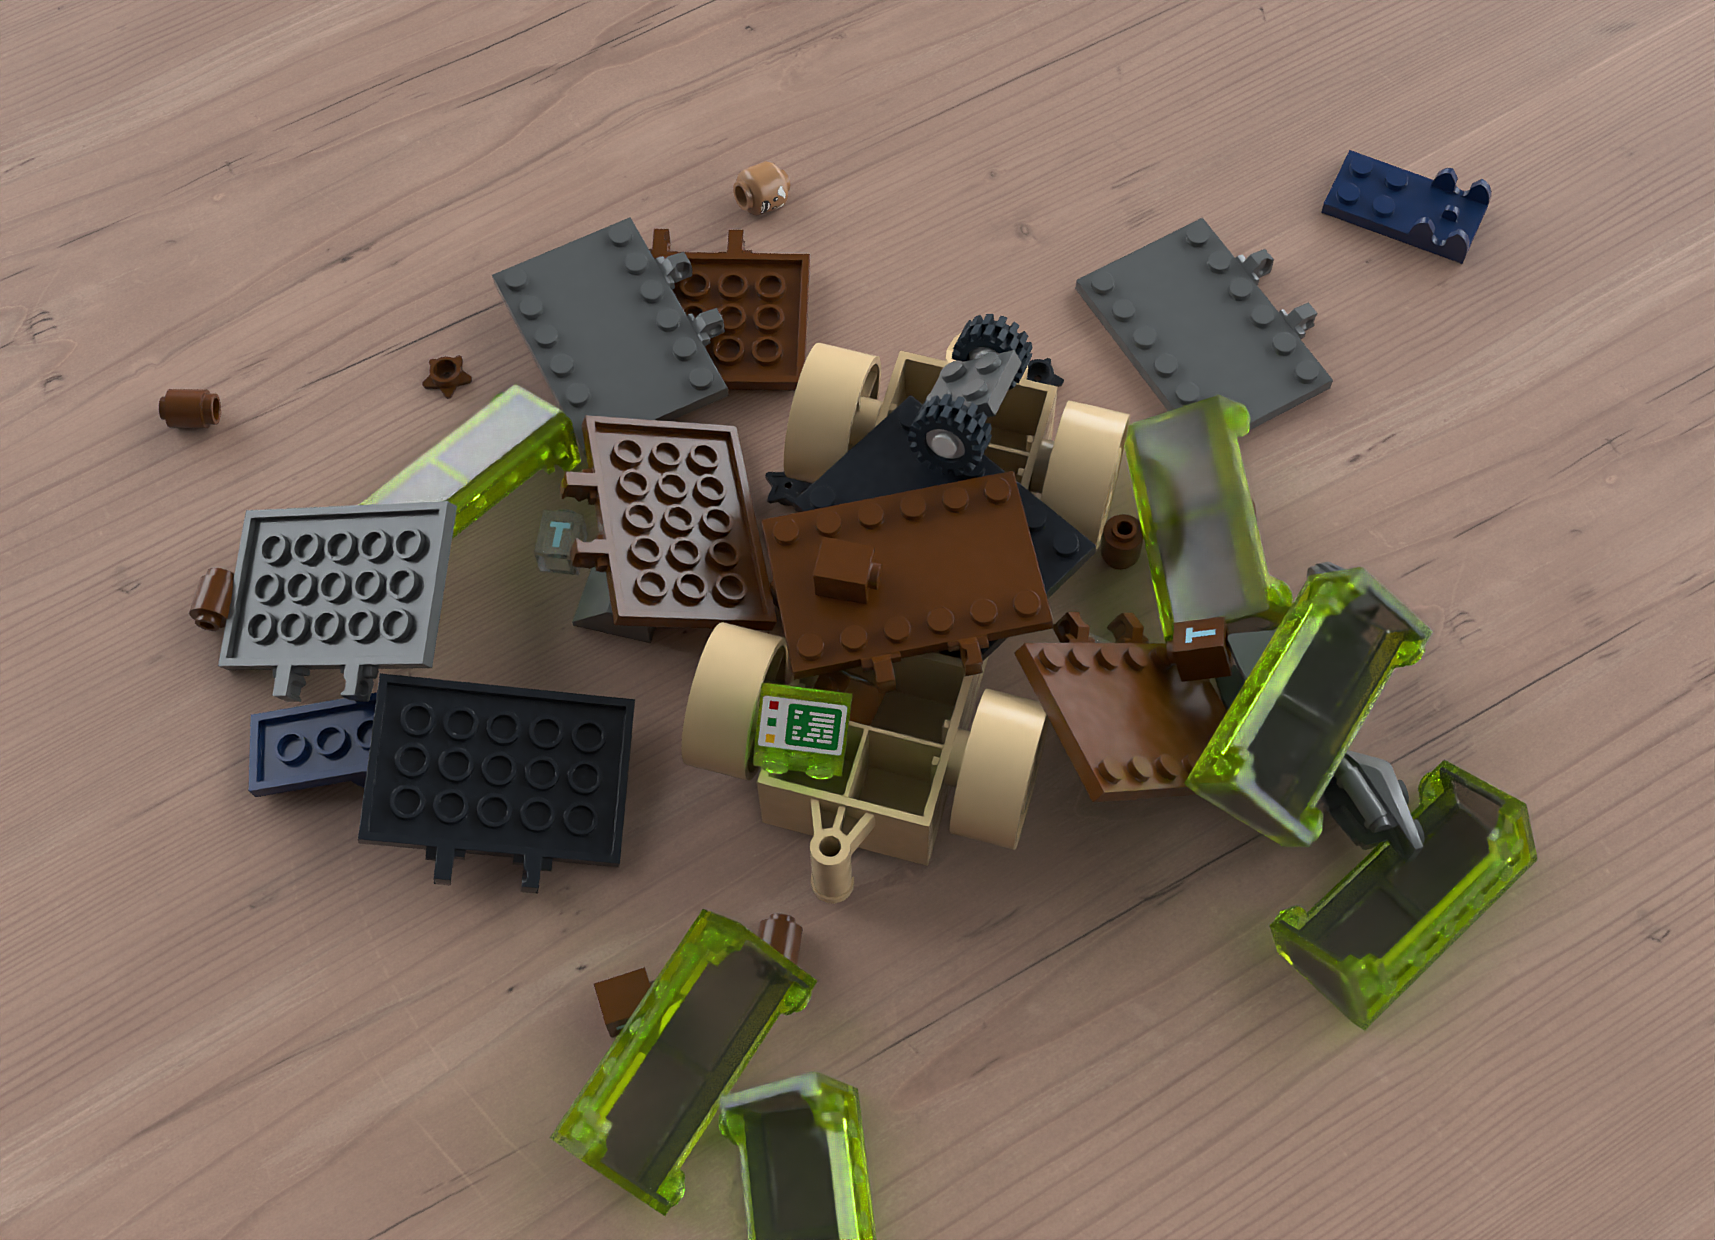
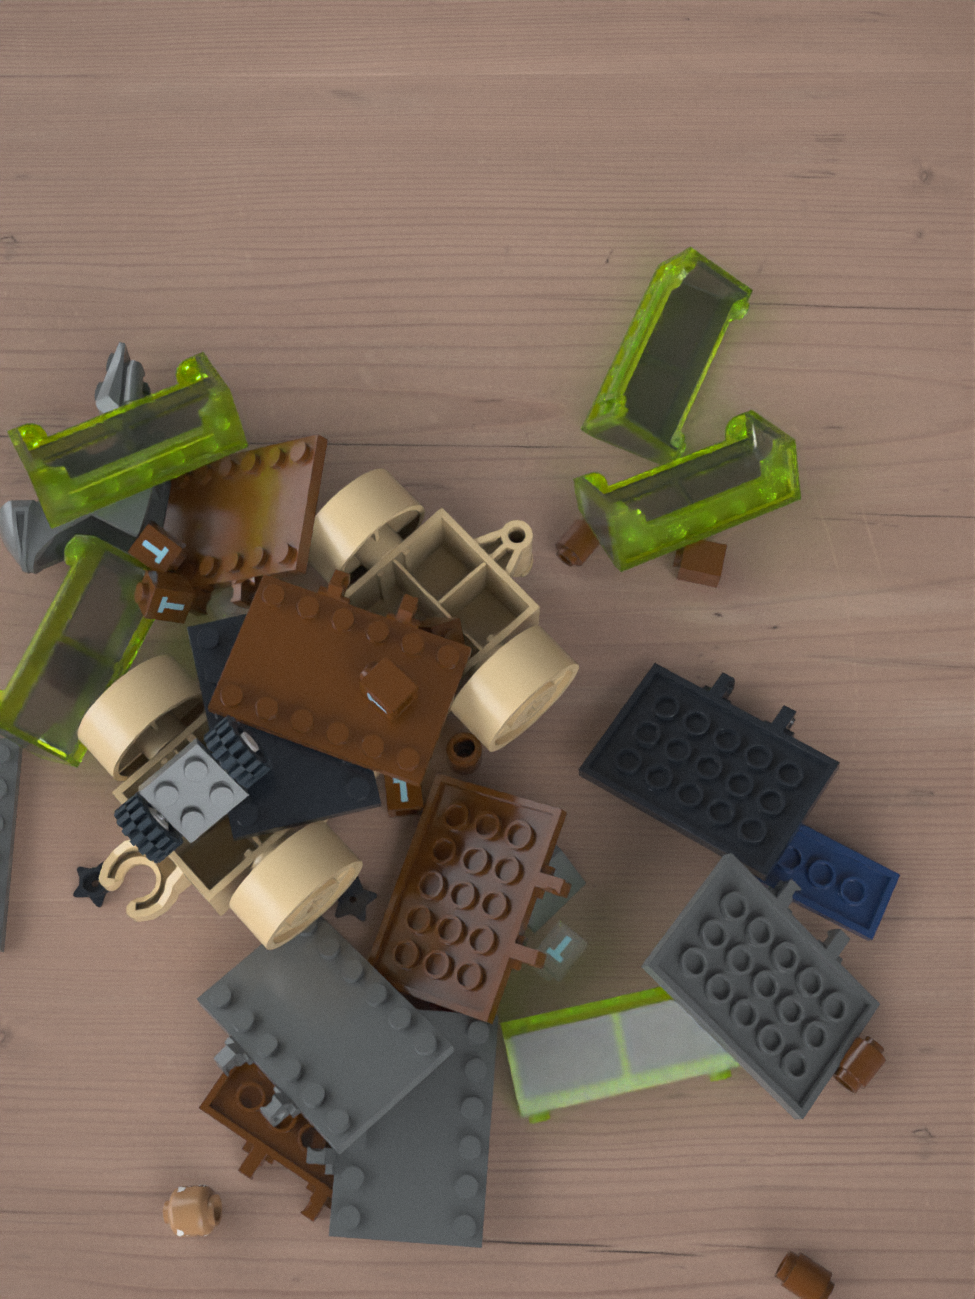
camera: 150 degrees left, 10 degrees up
(443, 366) = (578, 1187): reddish brown plate -> none
(723, 340) = (323, 1033): none -> dark grey hinge
(801, 730) = (490, 602): slope -> none
(1155, 601) = (164, 596): none -> reddish brown brick
(1399, 917) = (155, 334): windscreen -> none

